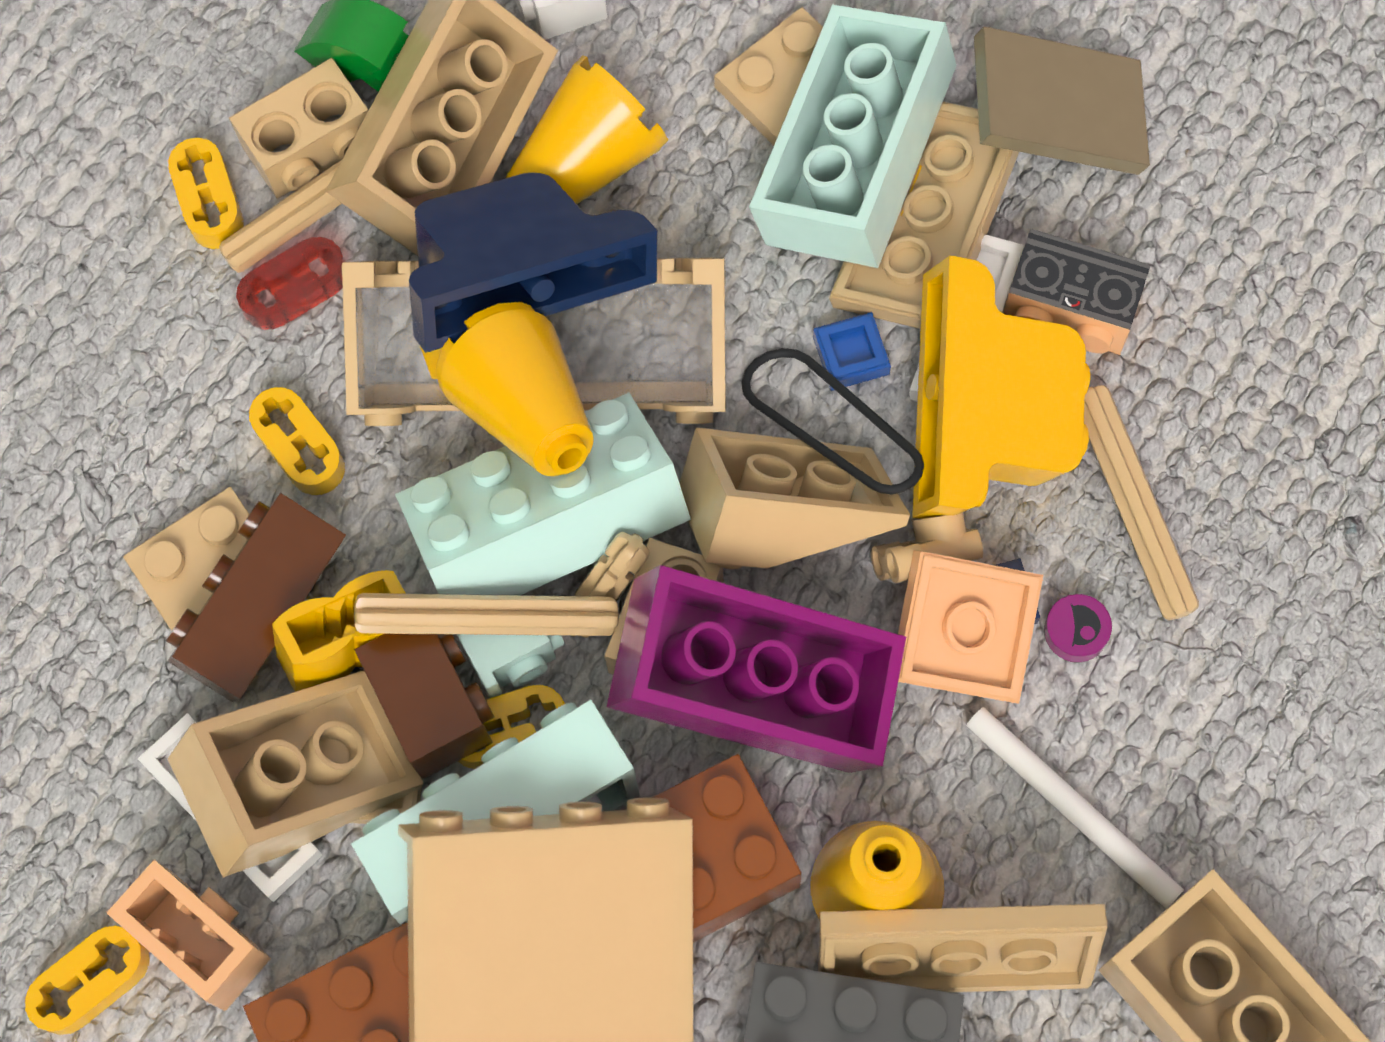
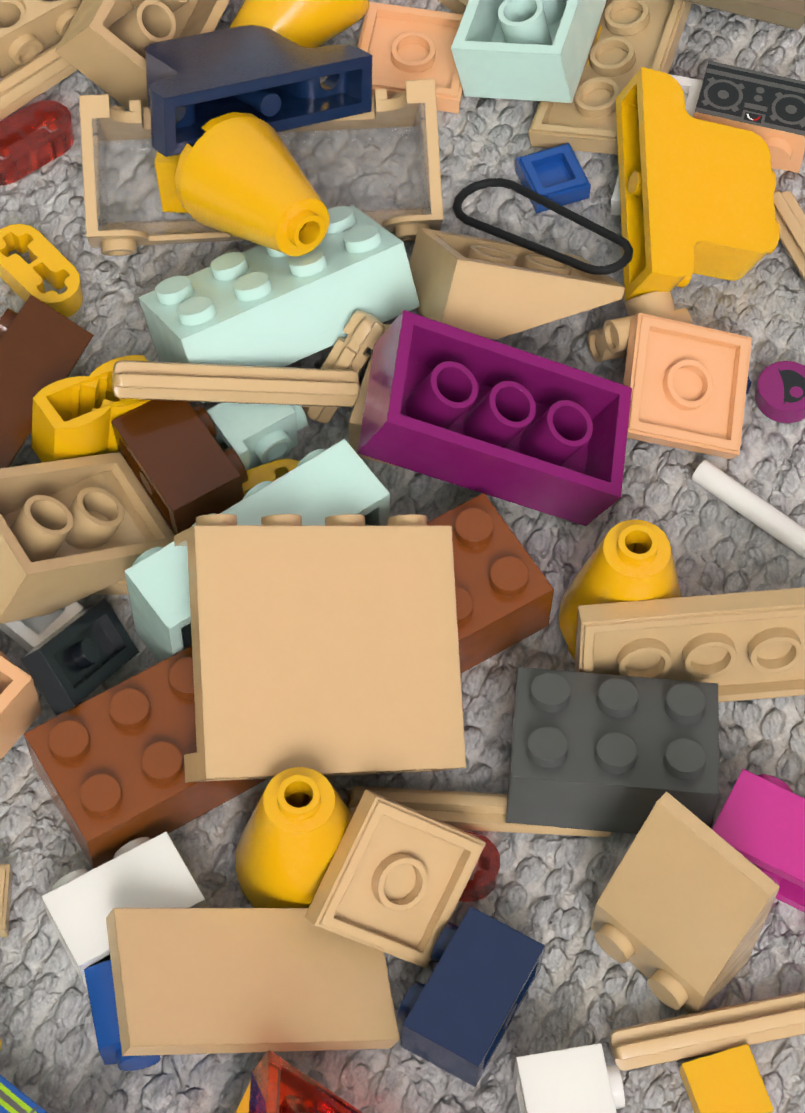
camera: 10 degrees left, 10 degrees down
(307, 915) = (79, 656): none -> black plate
(706, 193) = (412, 46): none -> light nougat tile

